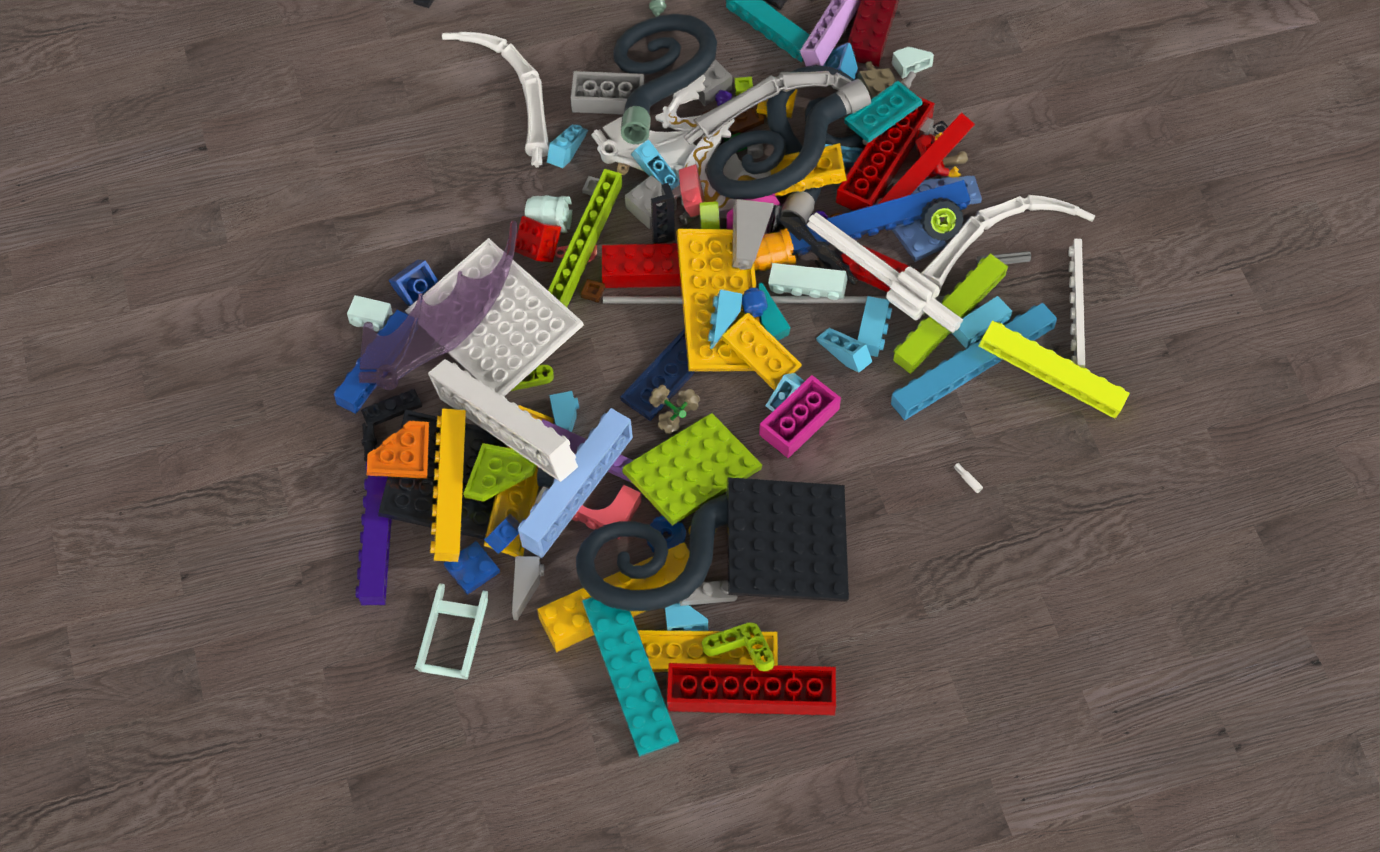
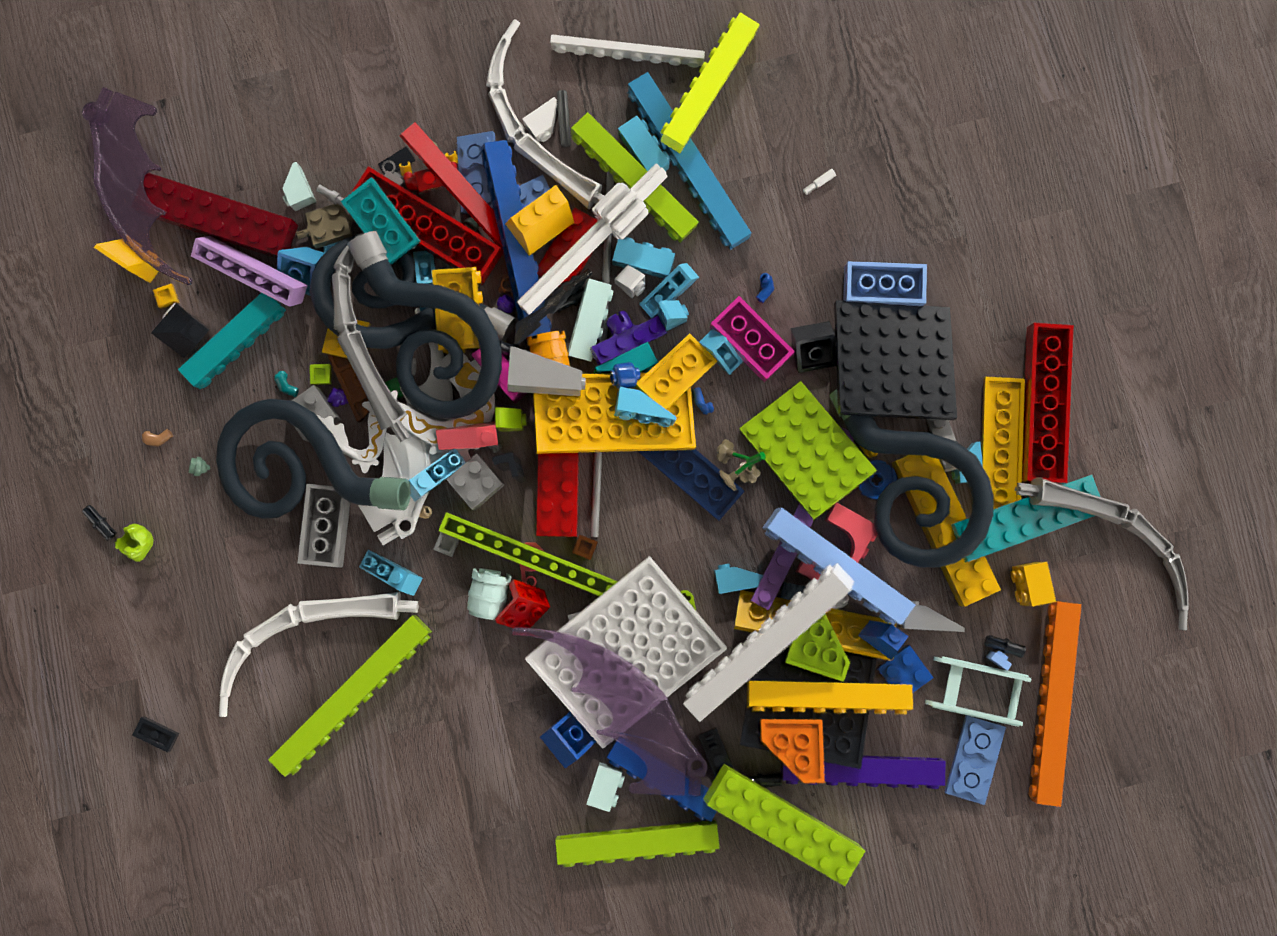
camera: 85 degrees left, 25 degrees up
(317, 343) = (637, 843): none -> lime brick
(327, 454) = (784, 825): none -> lime brick
(382, 634) = (975, 759): none -> medium blue piece
(439, 706) = (1055, 703): none -> orange brick
(459, 122) = (349, 696): none -> lime brick
(483, 651) = (999, 659): none -> light blue plate
(497, 658) = (1005, 646): none -> black axle
(561, 675) = (1033, 584): none -> yellow brick
(654, 682) = (1048, 493): none -> light grey animal
(736, 378) = (700, 402): none -> blue arm
(737, 58) = (283, 386): none -> teal arm
(743, 638) = (999, 409): lime beam -> none
(795, 312) = (626, 336): none -> dark purple plate
(798, 466) = (814, 346): none -> black slope
(818, 342) = (672, 313): none -> medium azure slope
(848, 314) = (631, 281): none -> white slope
(856, 434) = (767, 287): none -> blue arm
(866, 532) = (885, 283): none -> light blue brick
(897, 231) = (541, 220): none -> yellow slope
(941, 208) = (526, 172): black wheel -> none
(998, 239) = (542, 120): none -> white slope

